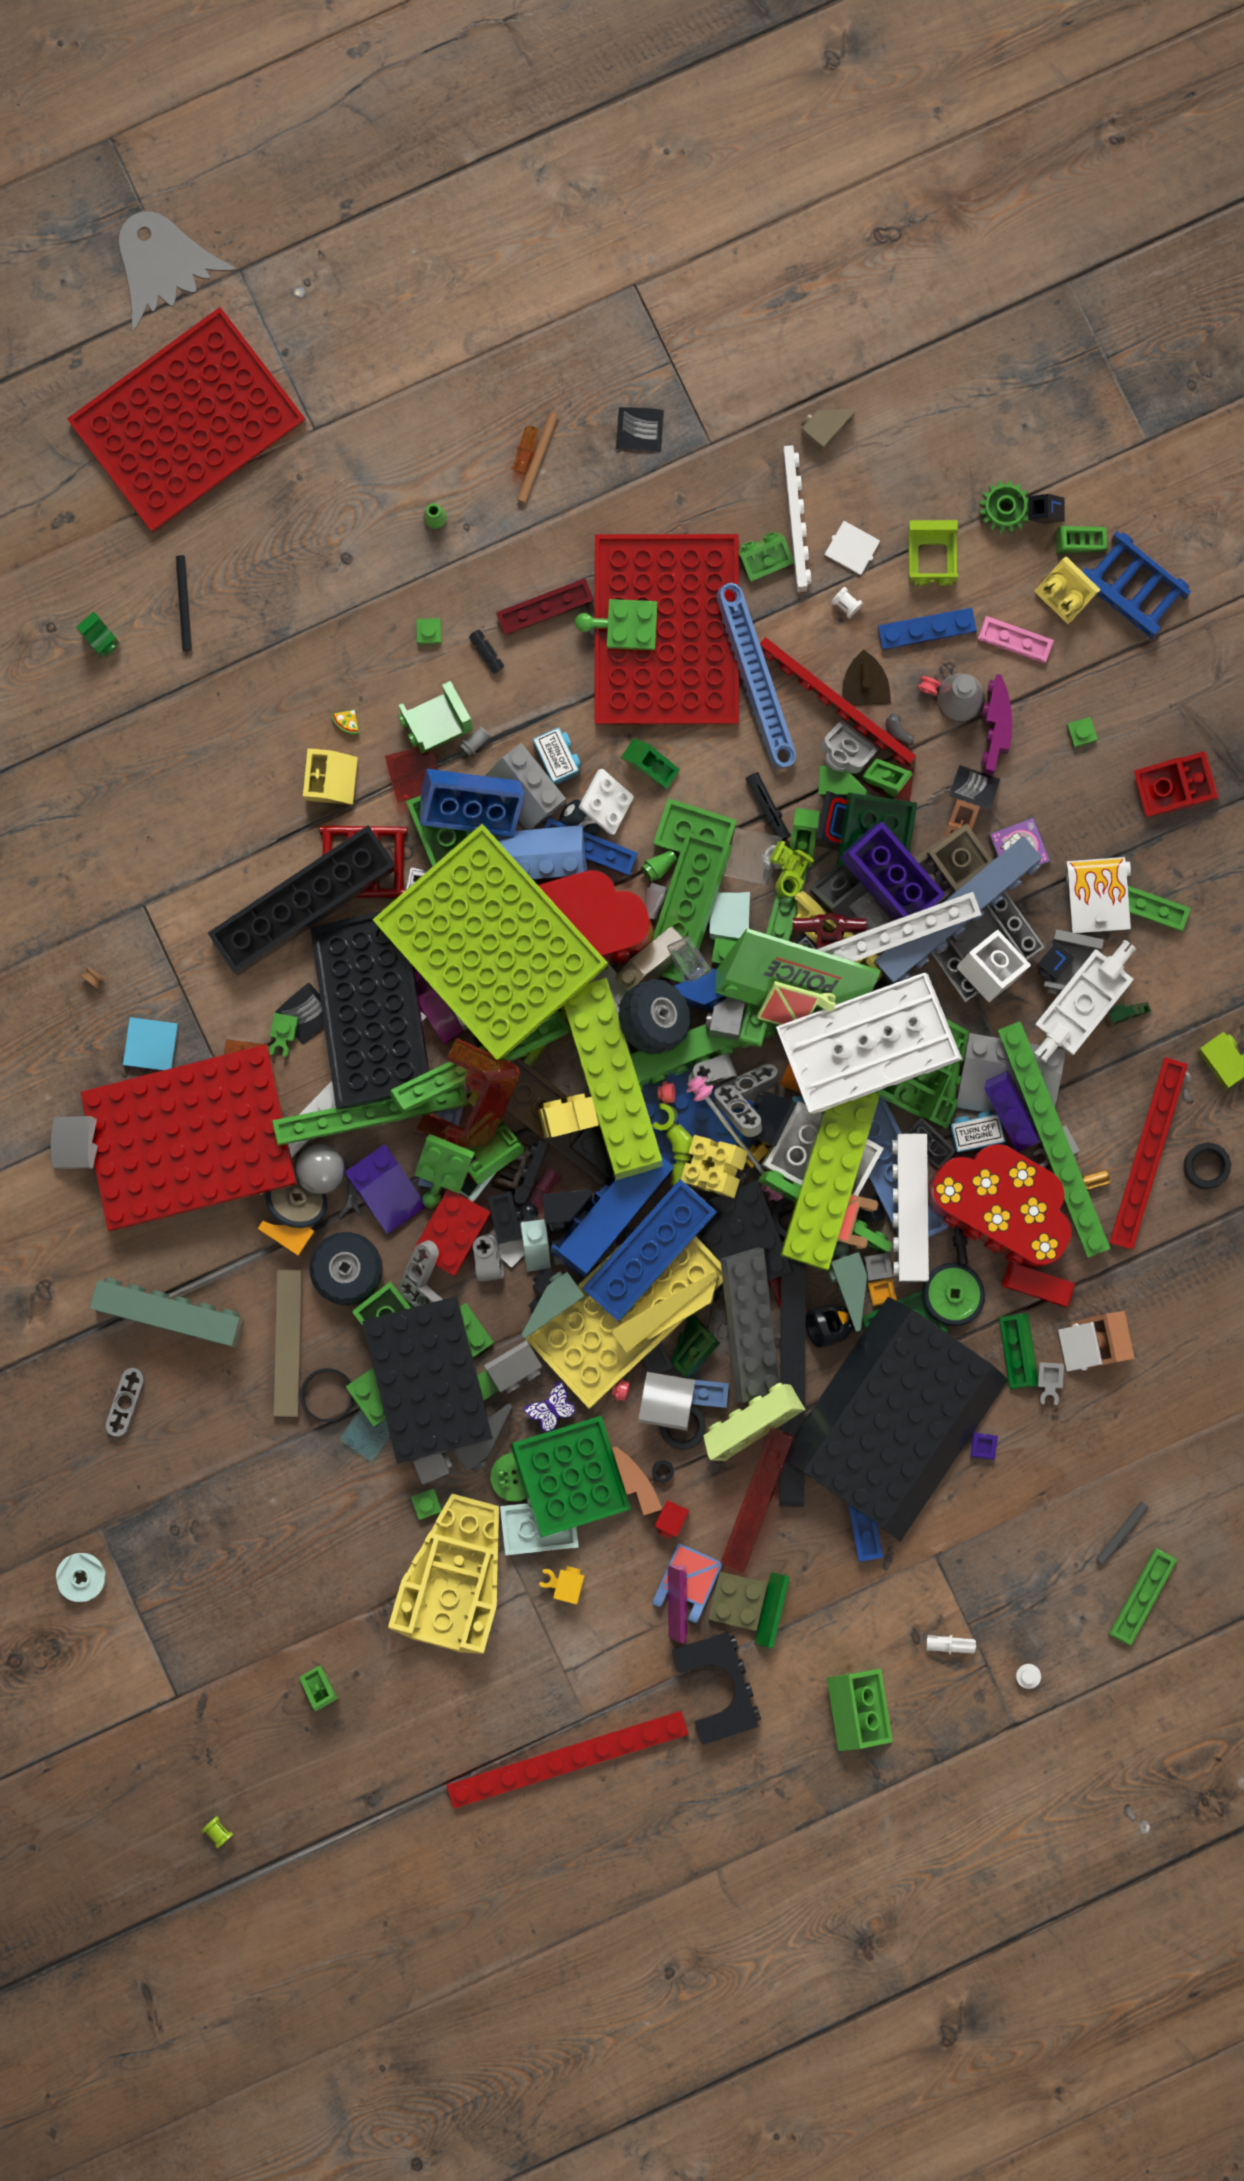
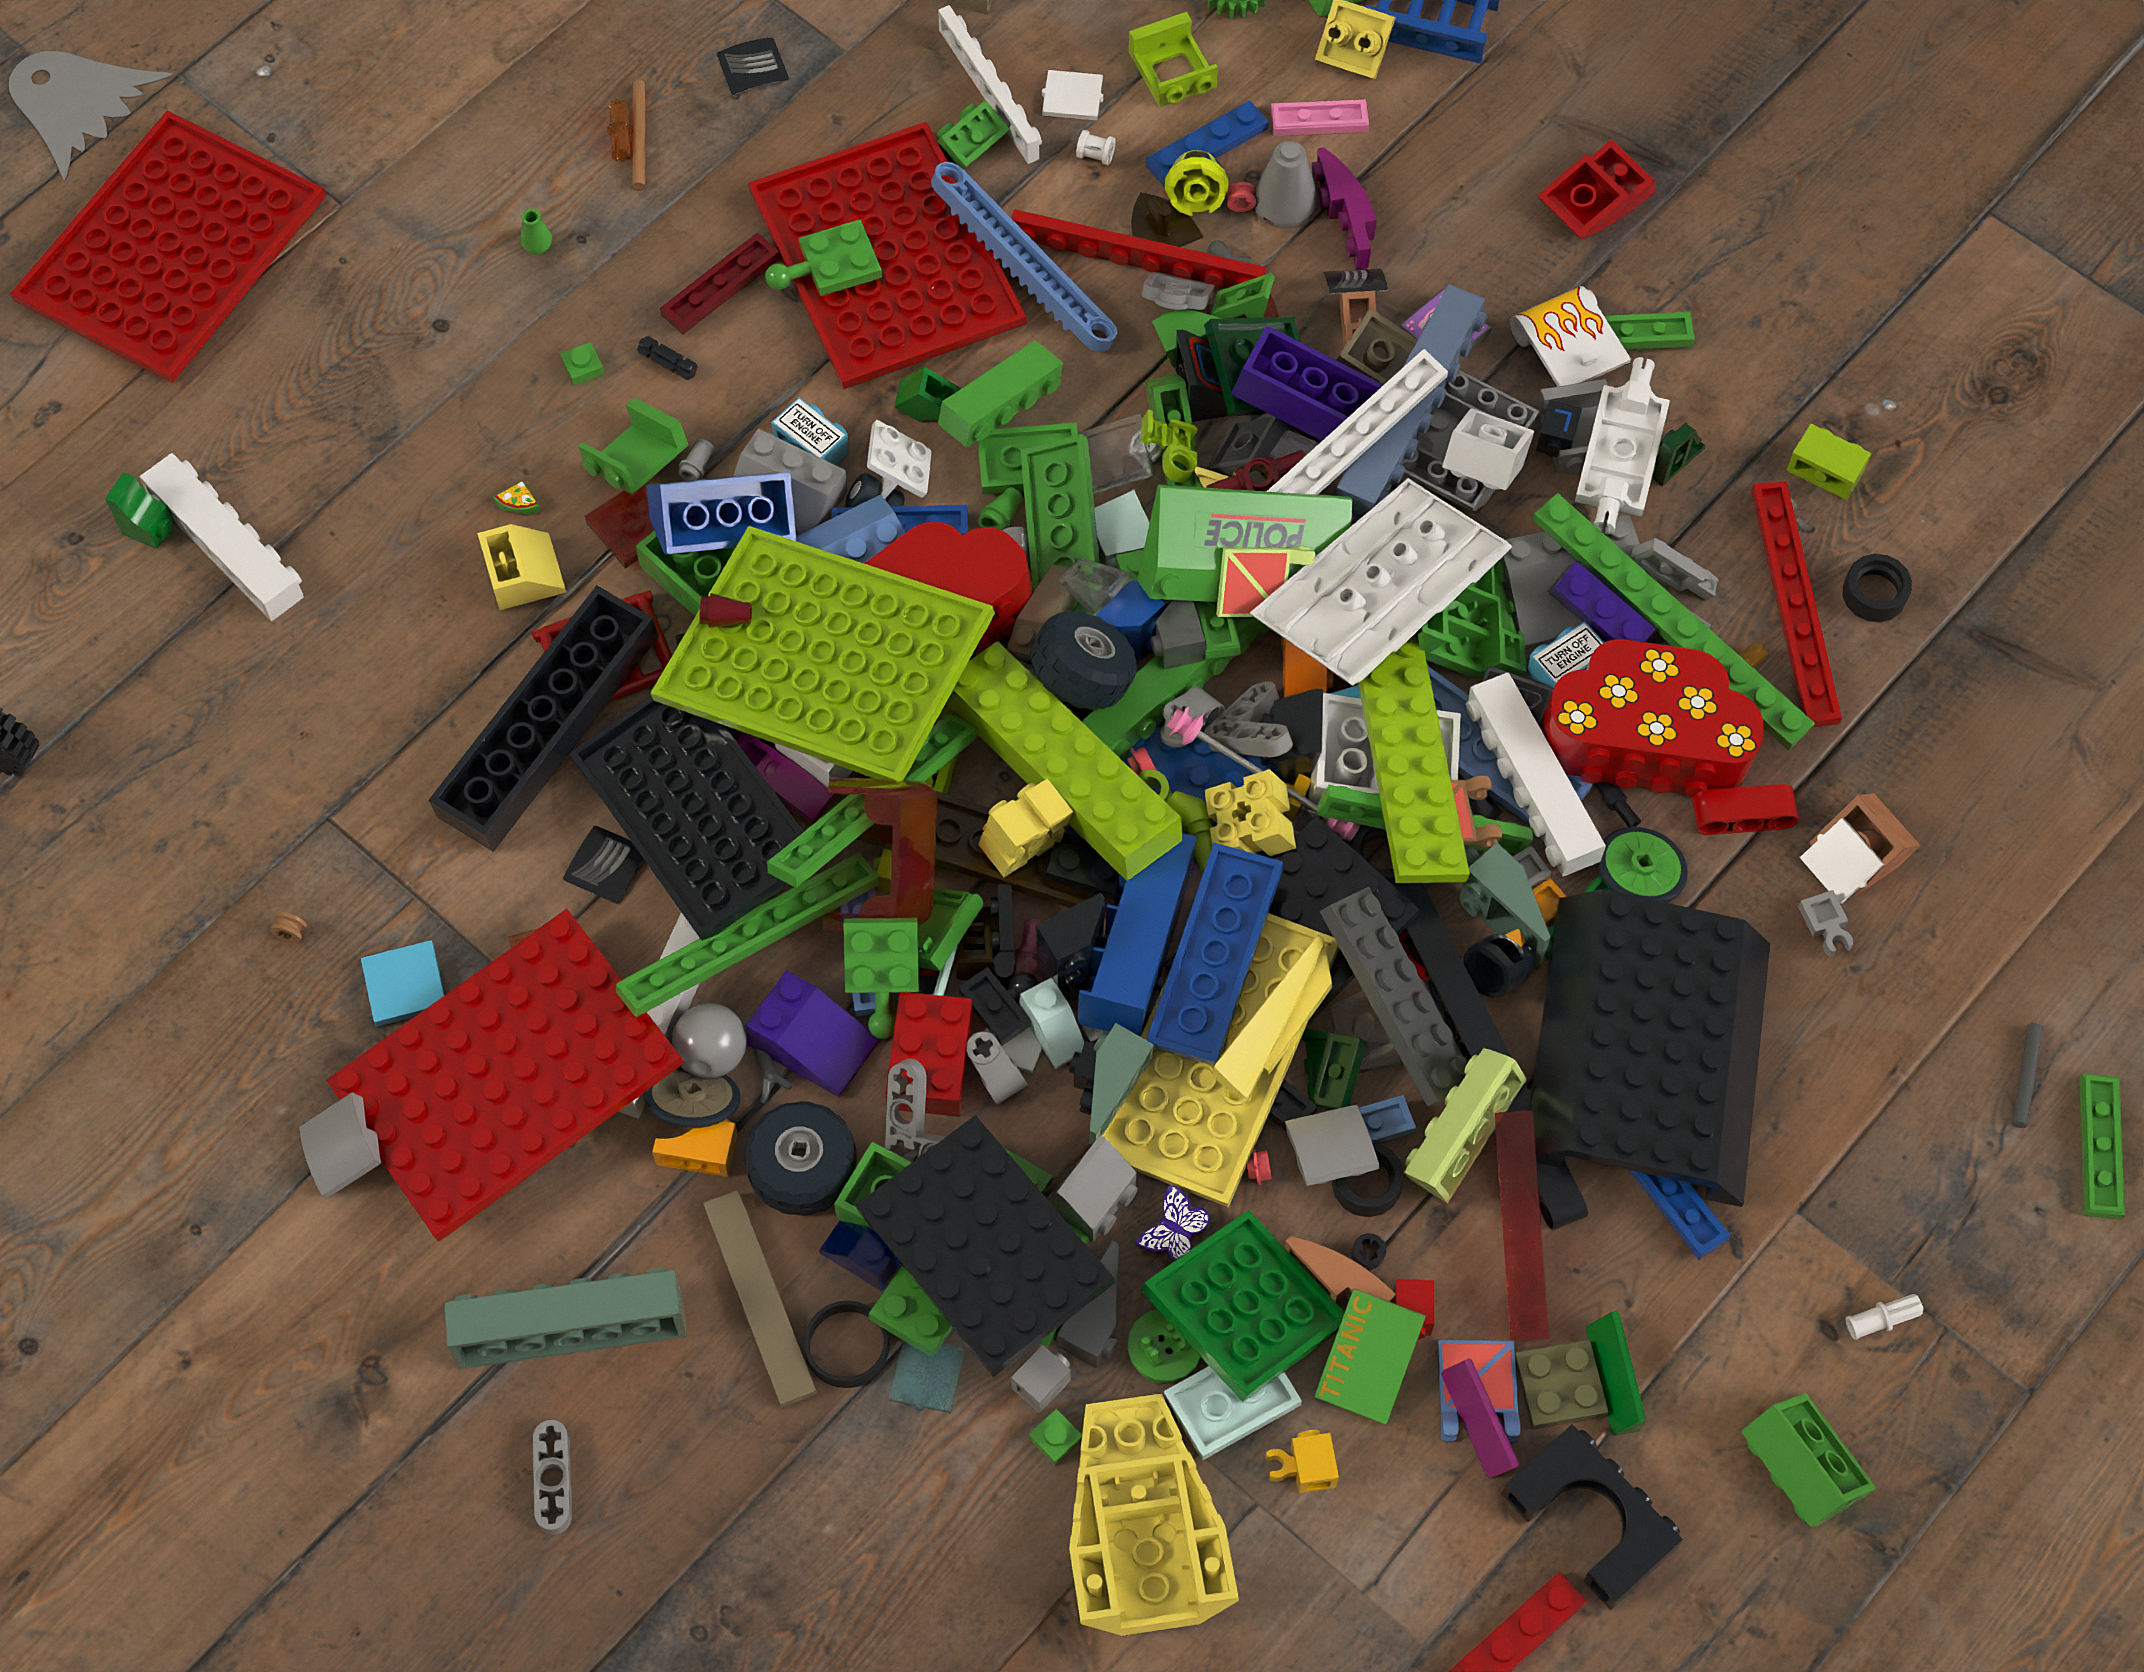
camera: 30 degrees left, 20 degrees down
(144, 671) = (223, 537): none -> white brick
(183, 603) = (245, 446): black piece -> none
(284, 1030) = (583, 894): bright green plate -> none
(355, 1340) = (861, 1253): none -> clear blue slope
(438, 885) = (724, 611): none -> dark red cone
(630, 1538) = (1370, 1356): none -> bright green tile
(694, 780) = (1000, 394): none -> bright green brick
(767, 806) = (1119, 404): black pin -> none
(901, 664) = (1196, 183): none -> neon yellow cone
(983, 1446) = (1784, 1040): dark purple tile -> none
(1019, 1351) = (1763, 904): green slope -> none
(1028, 1676) = (2012, 1314): white plate -> none
(1079, 1101) = (1674, 568): none -> light grey hinge
(1082, 732) = (1452, 182): bright green plate -> none

